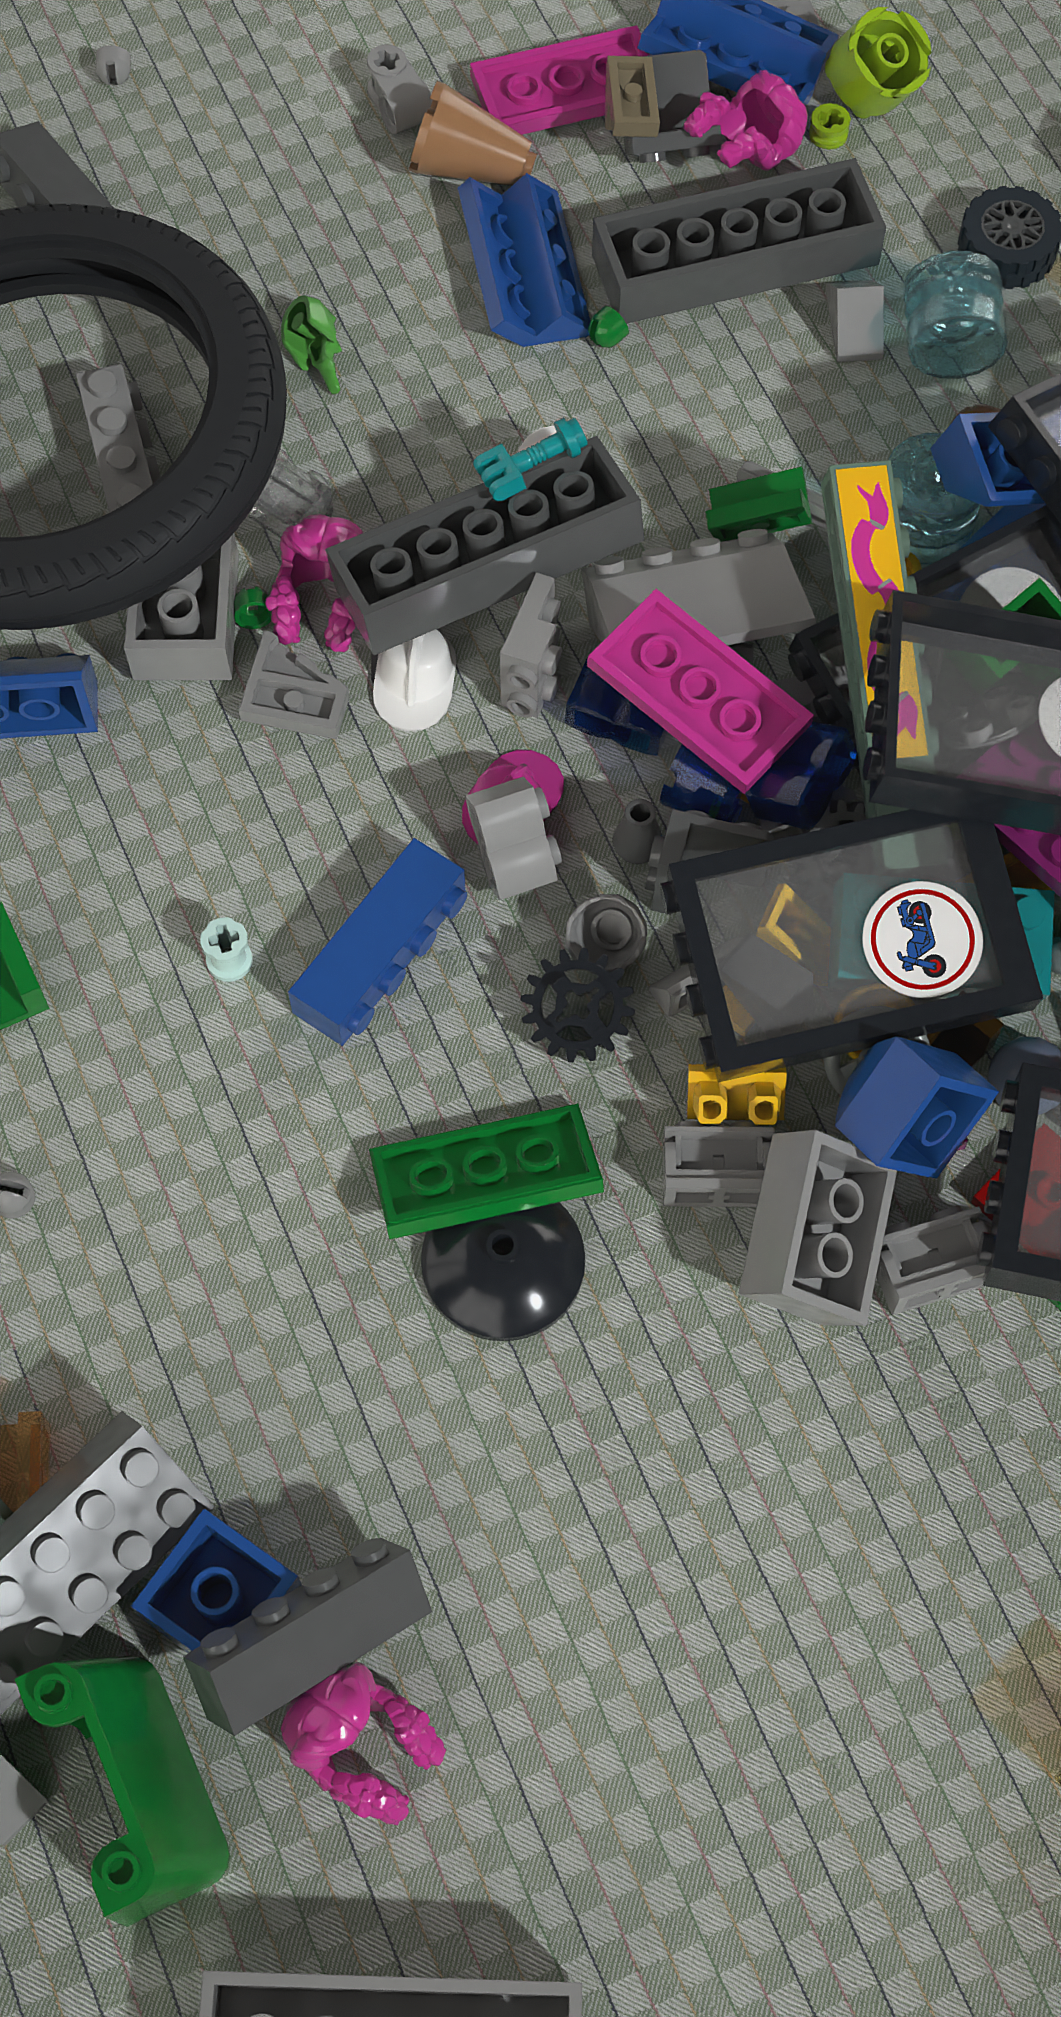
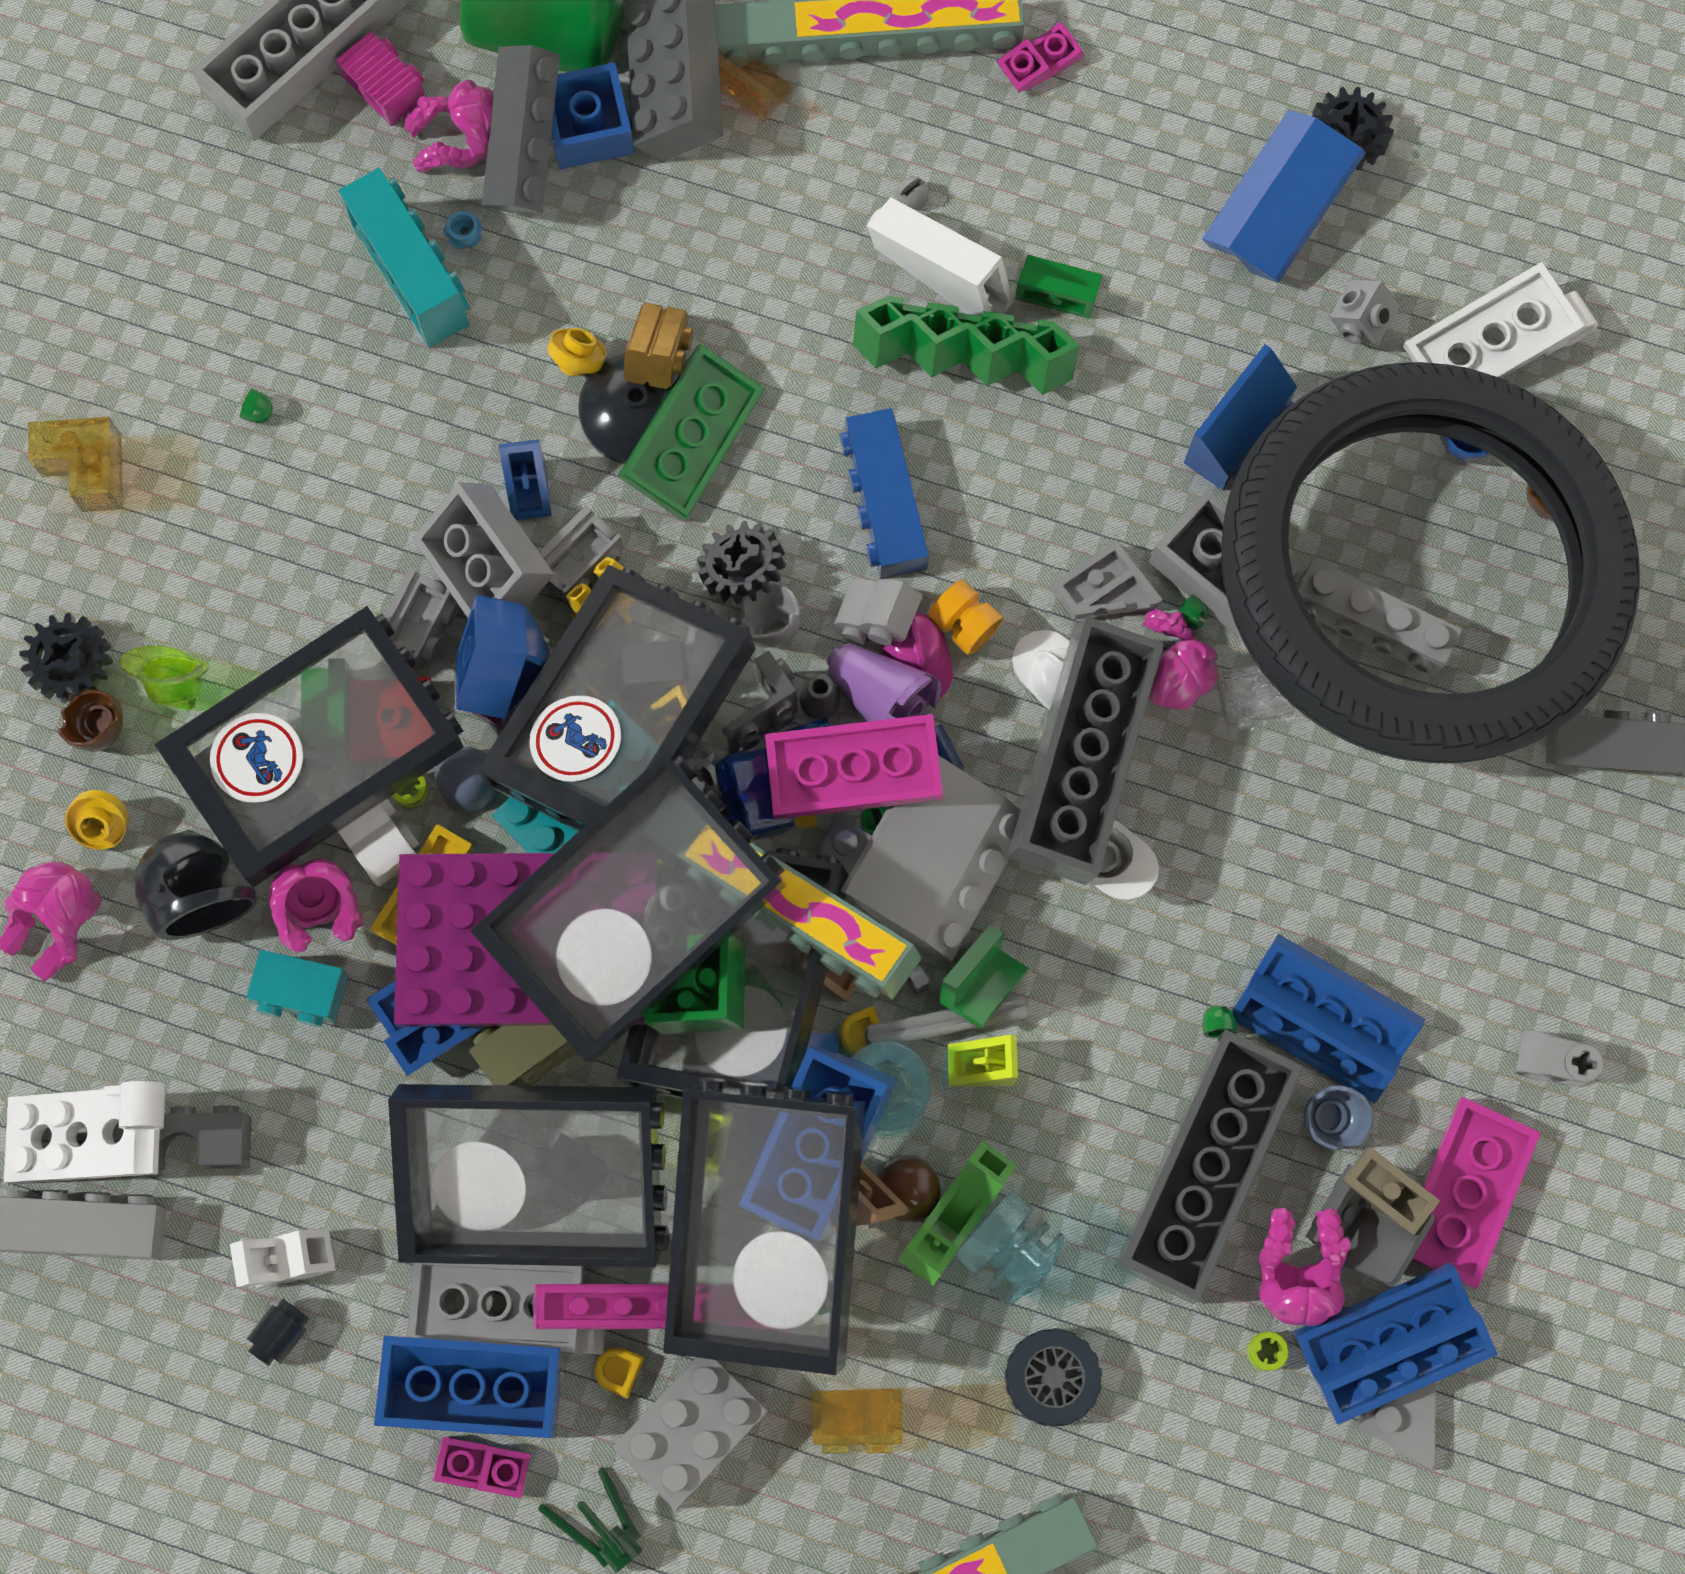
camera: 130 degrees right, 10 degrees up
(73, 1089) = (941, 259): none -> white slope
(137, 972) = (987, 344): none -> green brick
(222, 934) = (964, 416): light aqua bush -> none
(311, 333) = (1379, 821): bright green piece -> none
(369, 1900) = (381, 77): none -> dark pink brick
(427, 1273) = (657, 346): none -> pearl gold brick
(440, 771) = (965, 617): none -> light orange wheel
(467, 141) = (1459, 1060): medium nougat cone -> none
(472, 1607) = (459, 221): none -> dark azure plate
(503, 472) = (1105, 842): teal hinge -> none
(504, 1360) = (576, 351): none -> yellow plate
(532, 652) = (990, 728): light grey plate -> none
(573, 1633) = (405, 256): none -> teal brick
(581, 778) = (881, 685): none -> medium lavender cone
(597, 189) = (1338, 1117): none -> sand blue hair
(688, 1288) = (525, 479): none -> blue slope
(808, 559) = (919, 980): none -> dark grey tile
(815, 443) = (983, 1062): none -> neon yellow slope
(856, 319) = (1084, 1203): light grey slope -> none
(879, 62) = (1304, 1414): lime brick -> none
(882, 1651) = (256, 407): none -> green hinge
(942, 386) = (957, 1213): none -> bright green arch

